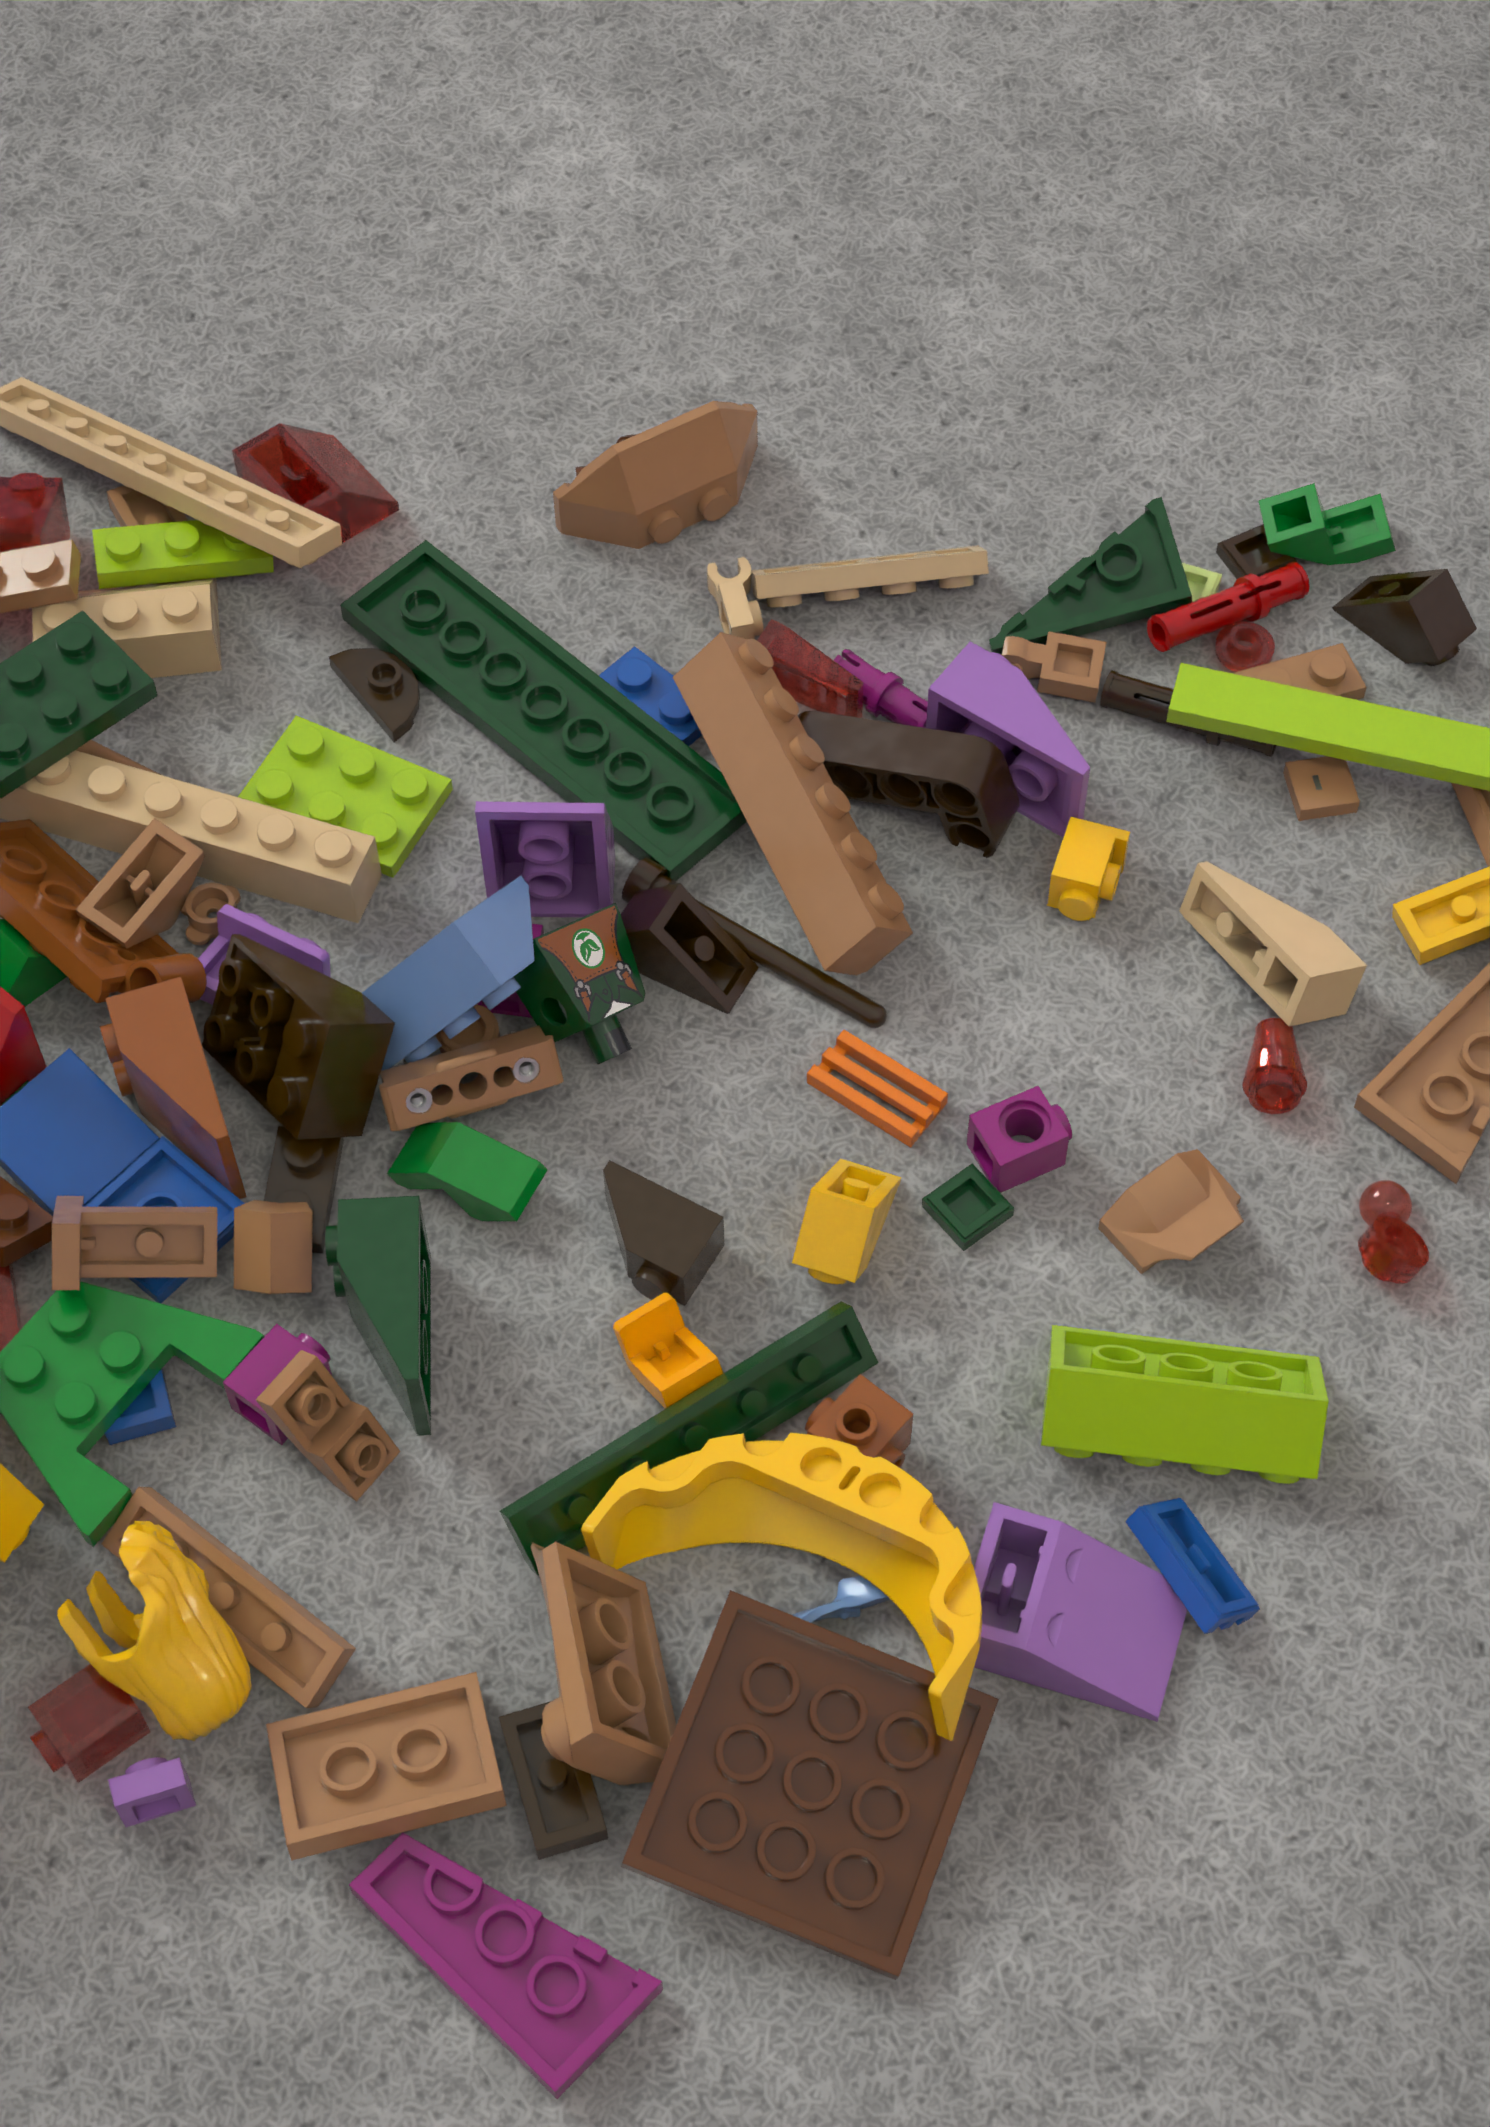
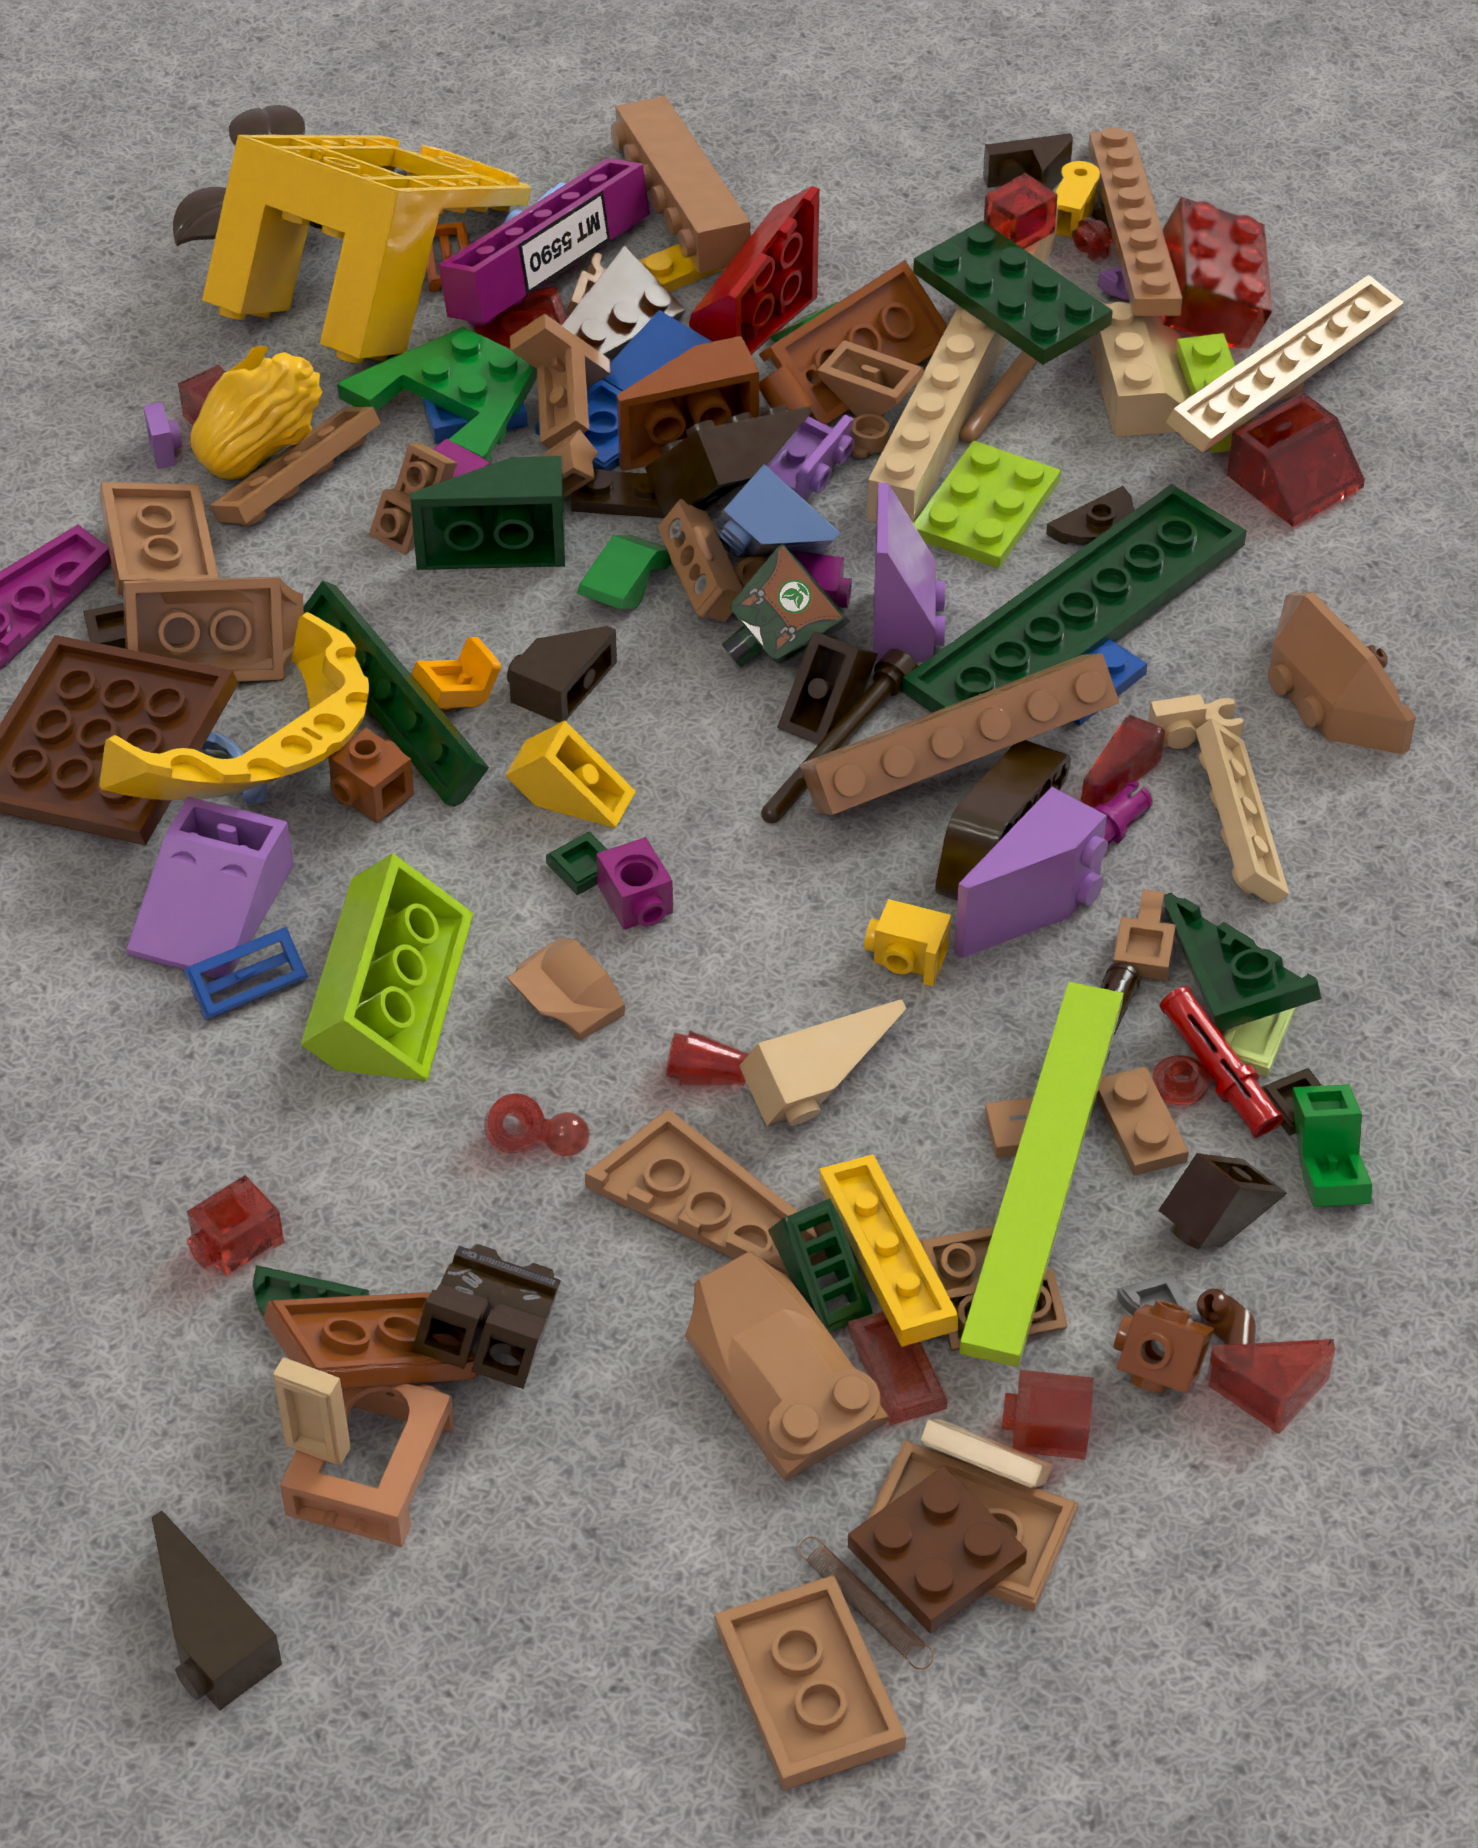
camera: 90 degrees right, 10 degrees down
(835, 1059) = (704, 830): orange tile -> none

